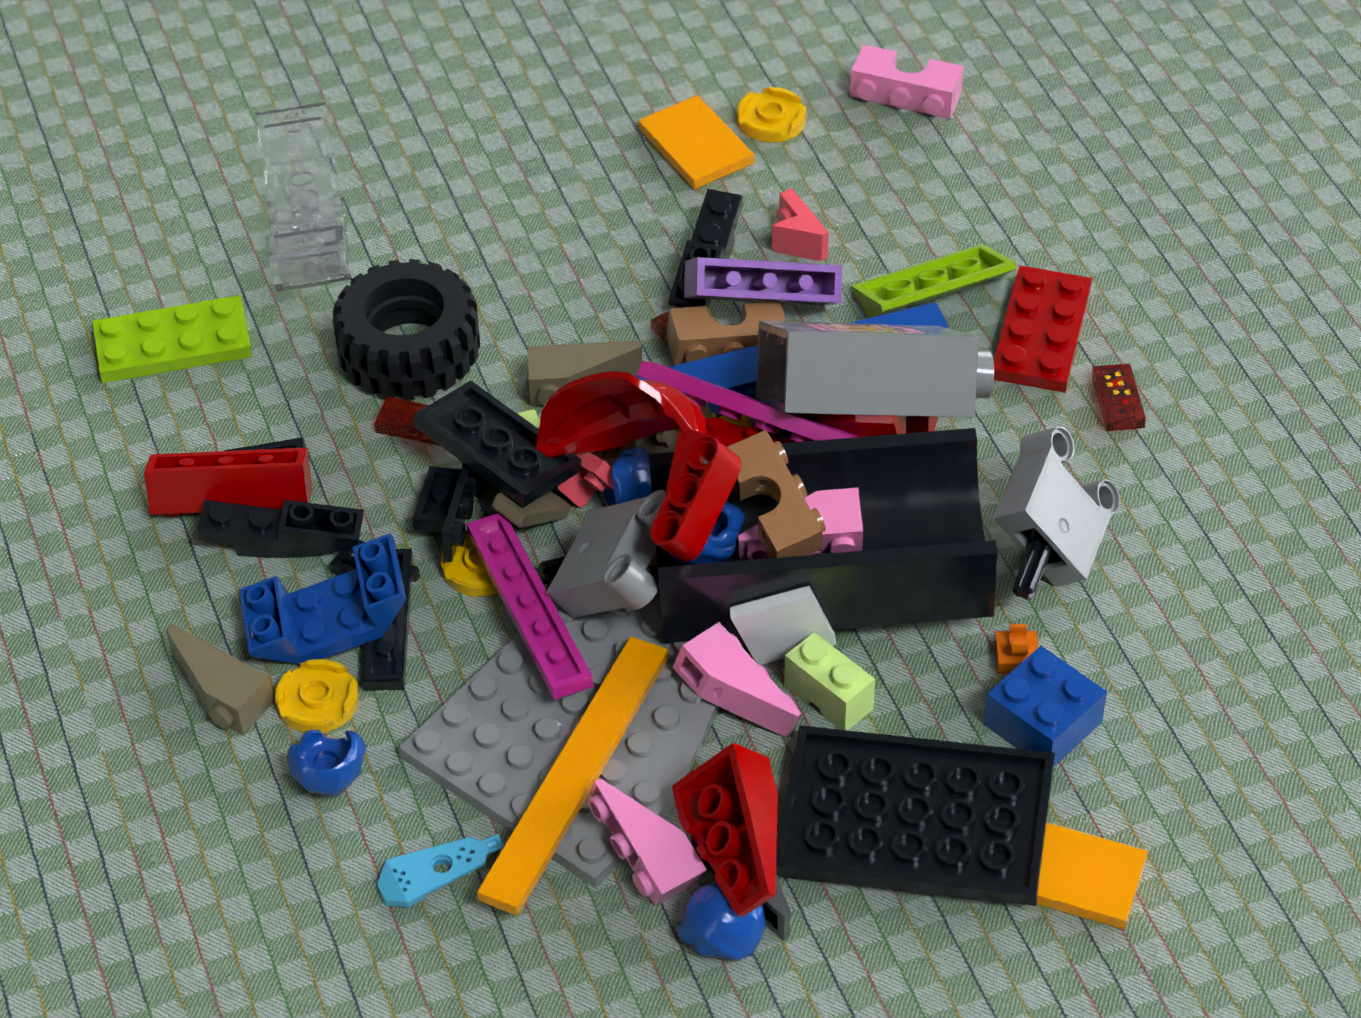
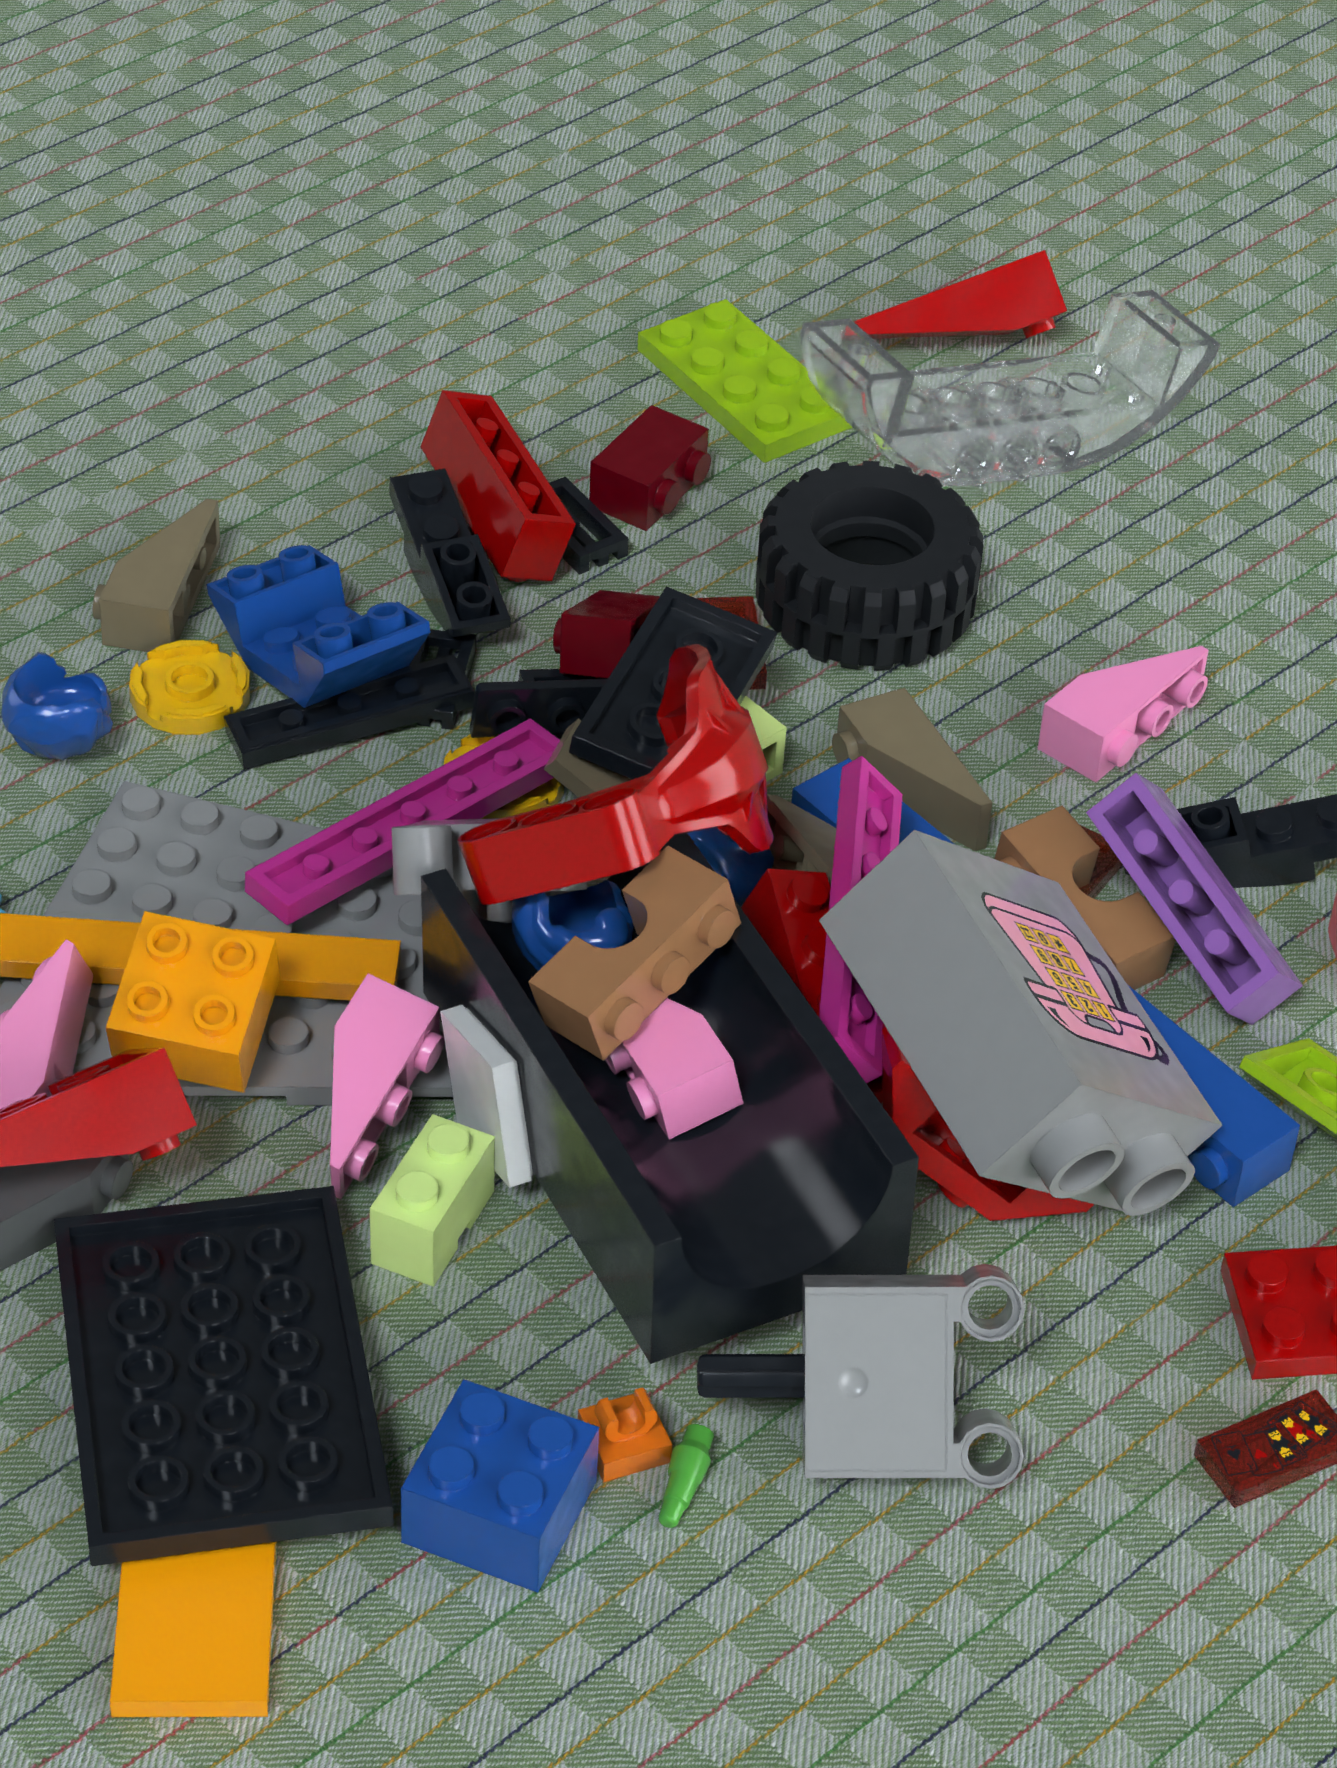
camera: 65 degrees right, 5 degrees down
(176, 201) = (990, 303): none -> red wedge
(244, 405) = (649, 467): none -> dark red brick
(410, 463) = (598, 631): none -> dark red brick
(580, 275) = (1116, 709): none -> bright pink slope
(652, 741) = (198, 996): none -> light orange brick
(1052, 632) = (685, 1471): none -> bright green piece

